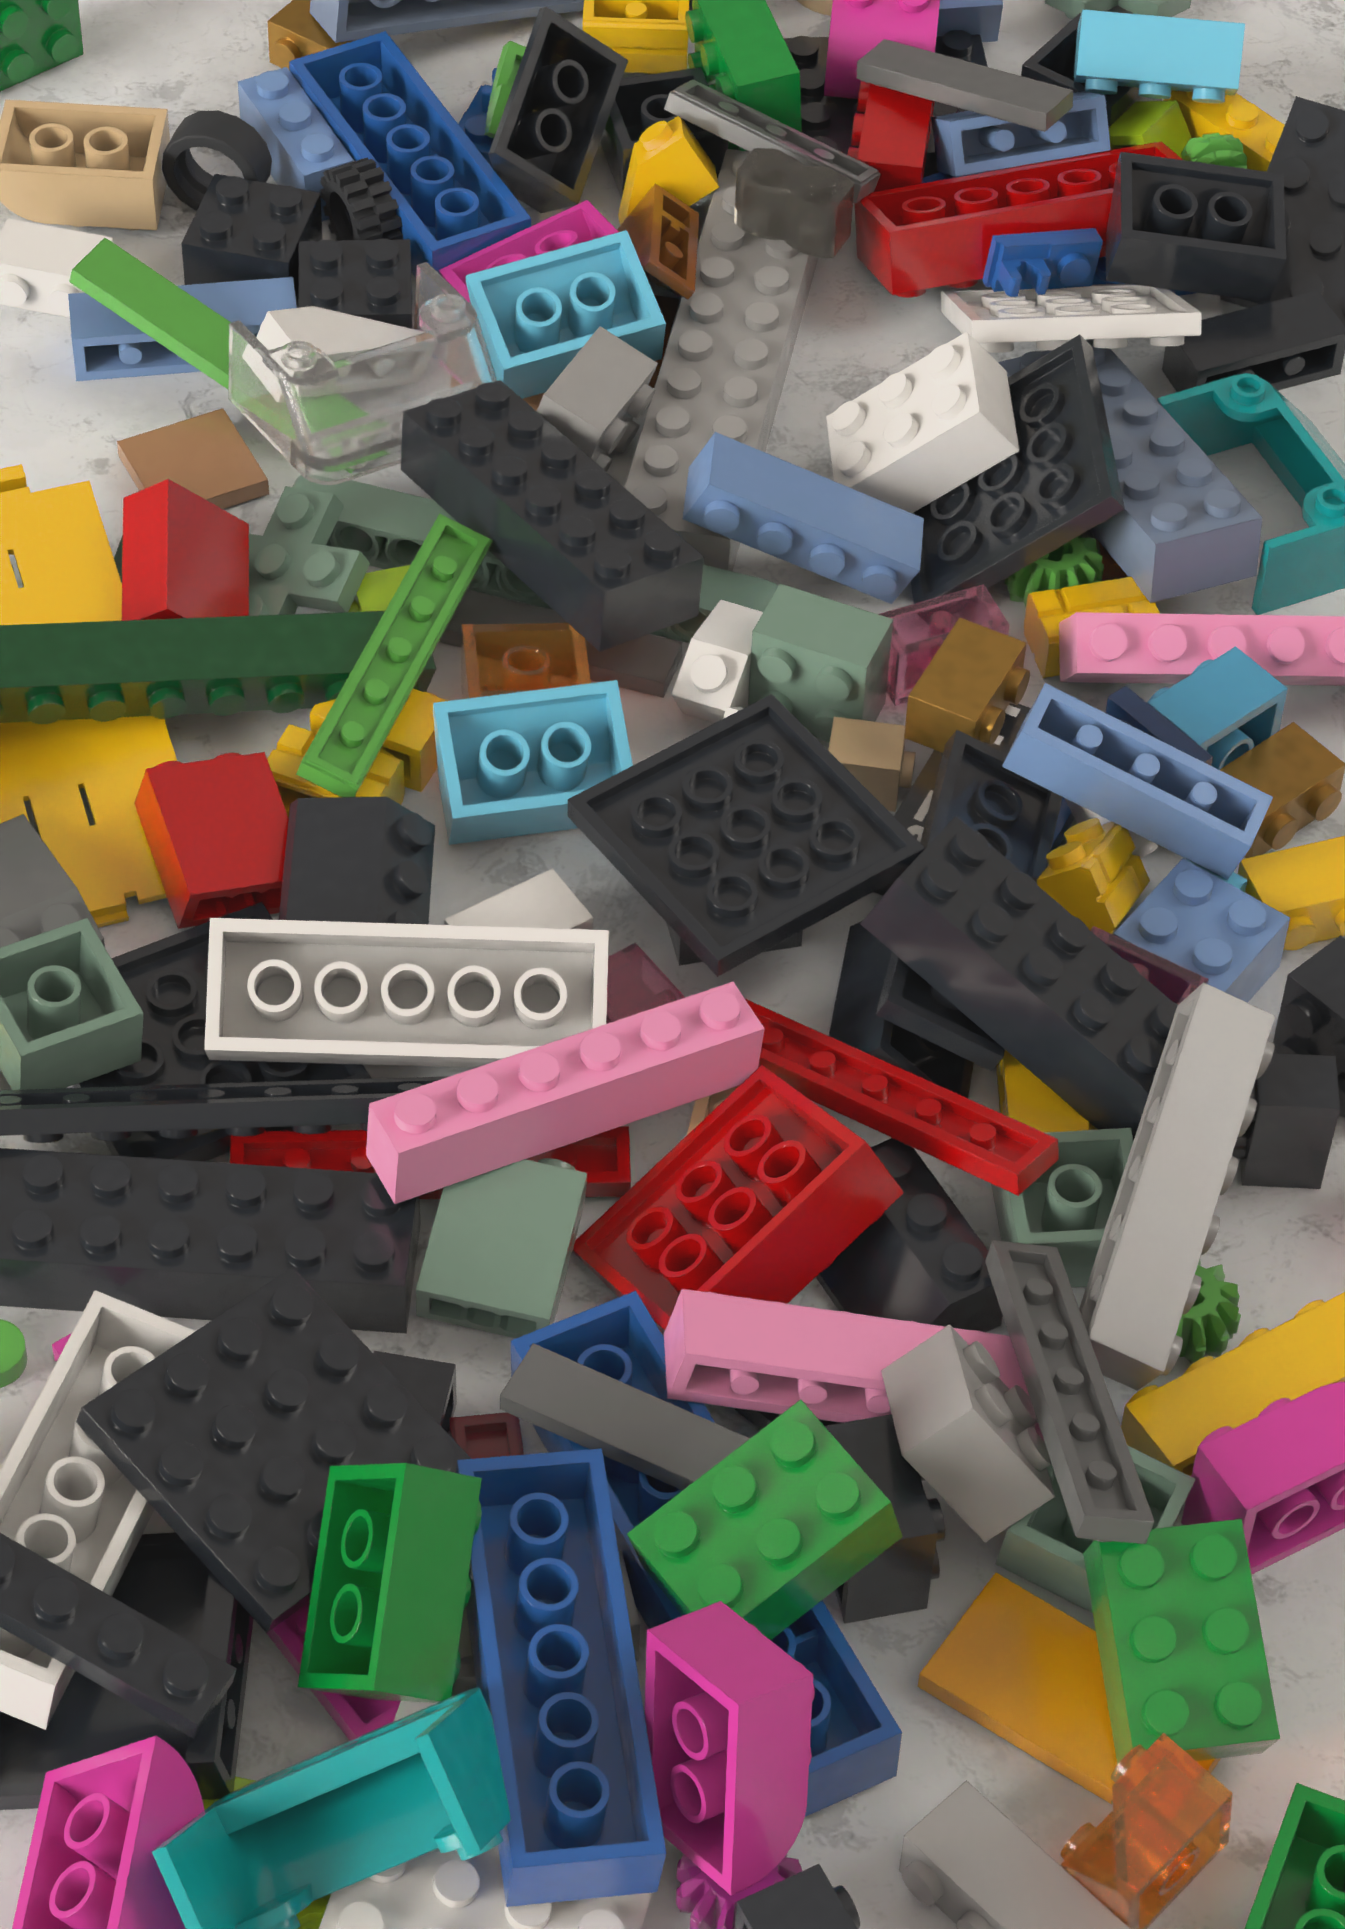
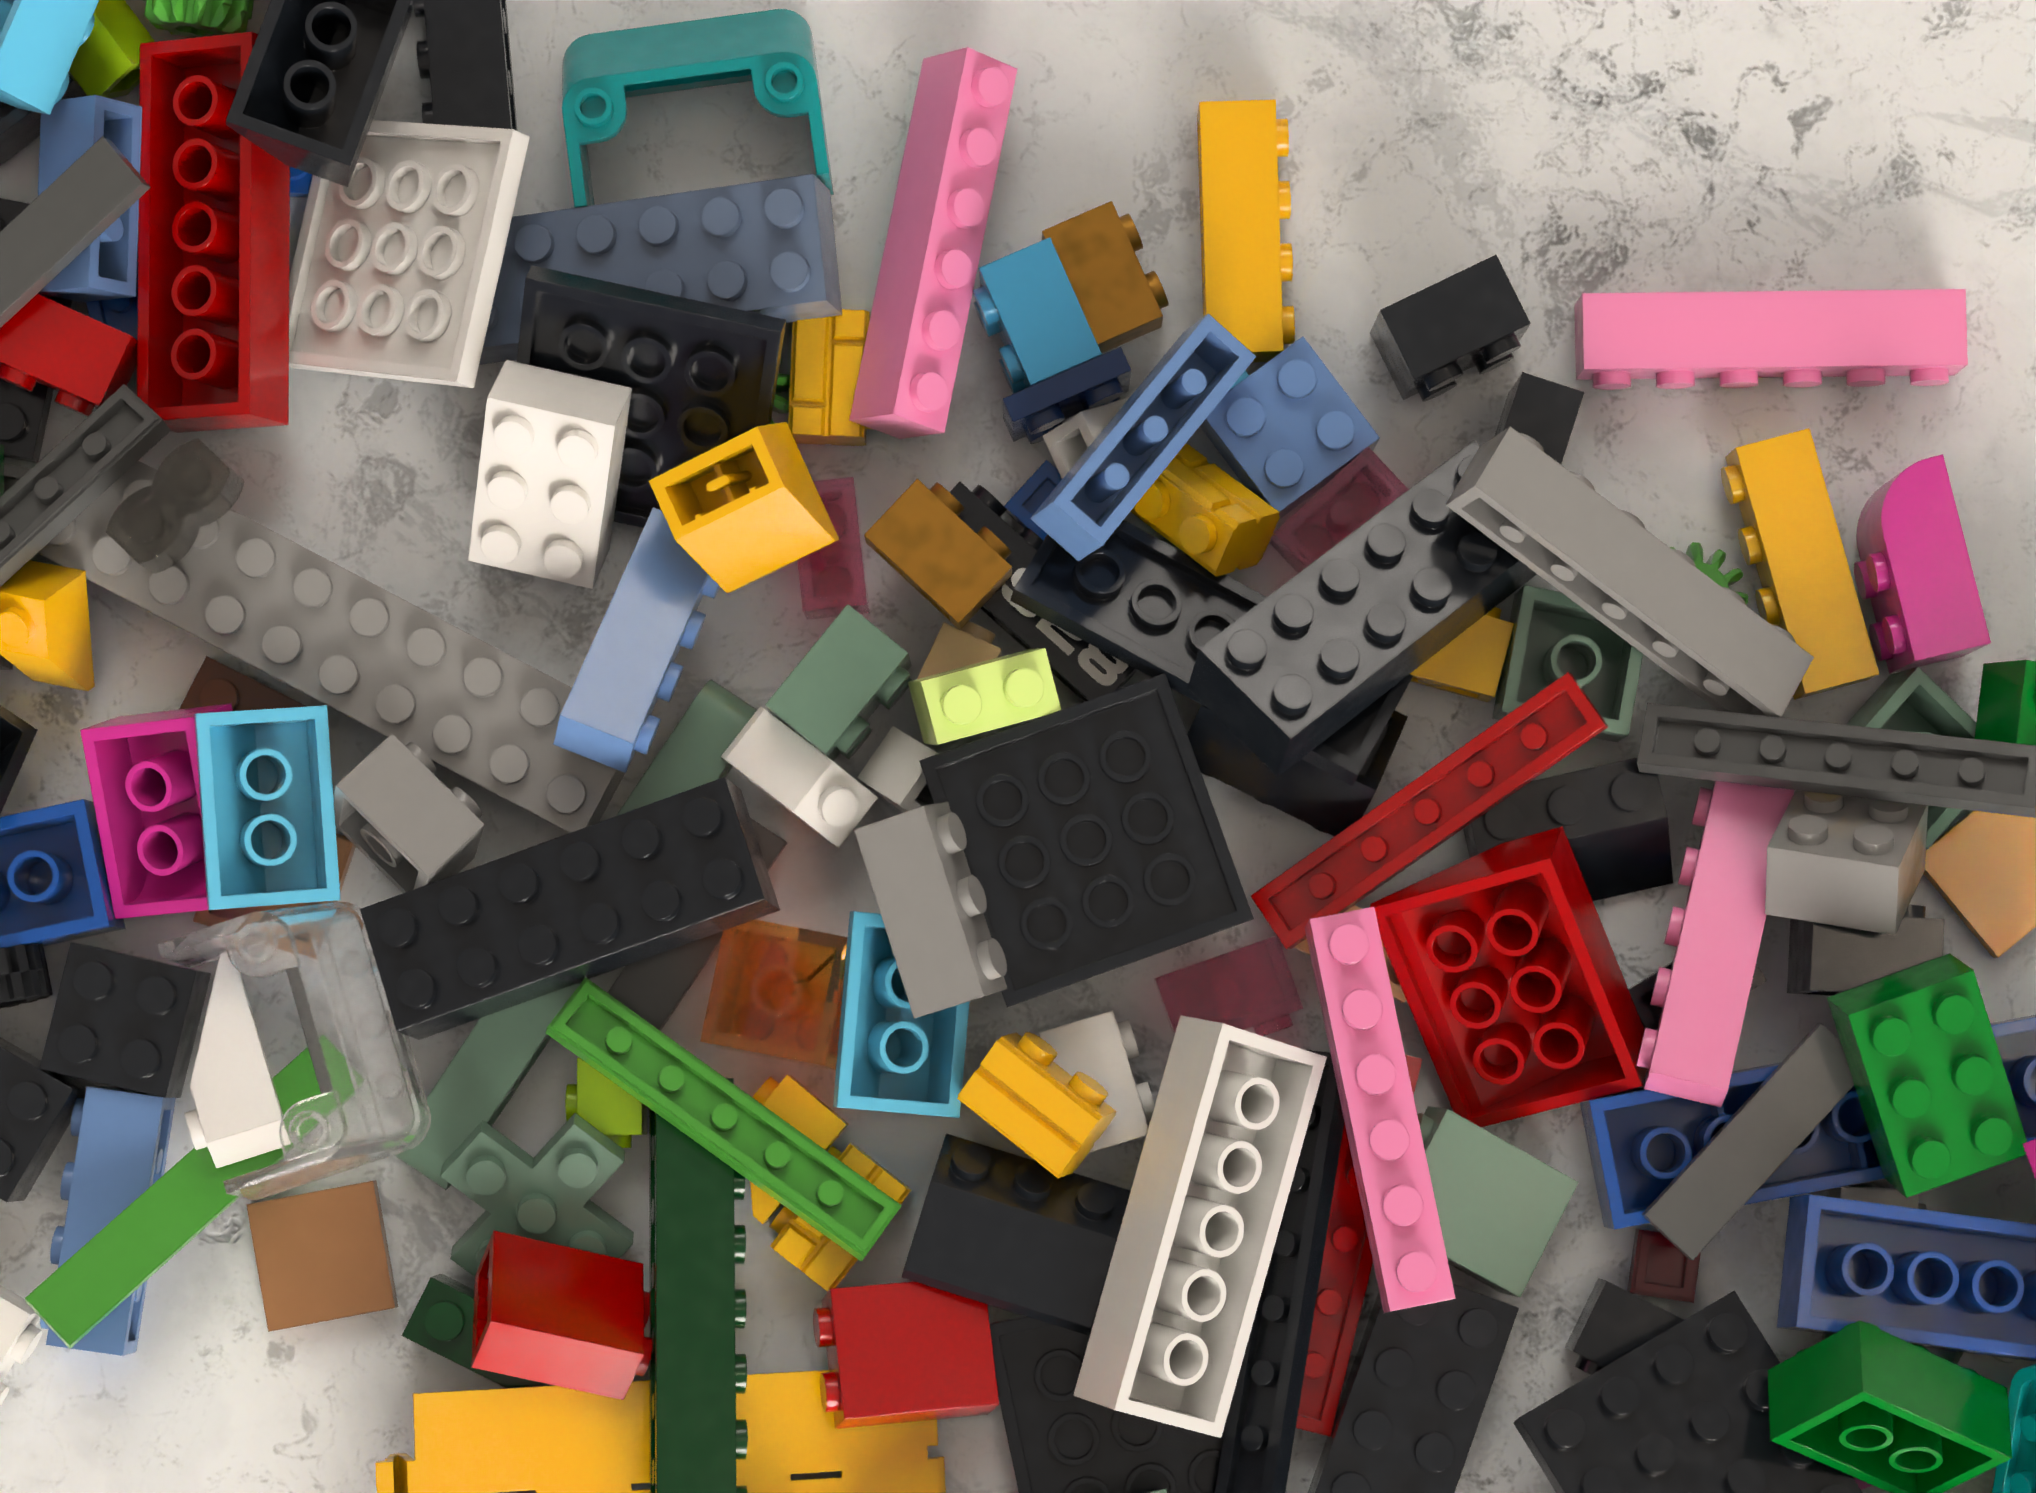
camera: 70 degrees left, 35 degrees up
(484, 863) = (1038, 1102): none -> yellow brick
(638, 716) = (932, 908): none -> light grey brick
(665, 240) = (161, 666): dark orange slope -> none
(854, 733) = (984, 696): none -> yellowish green brick
(952, 536) = (745, 507): none -> yellow slope
(1042, 260) = (301, 220): blue plate -> none

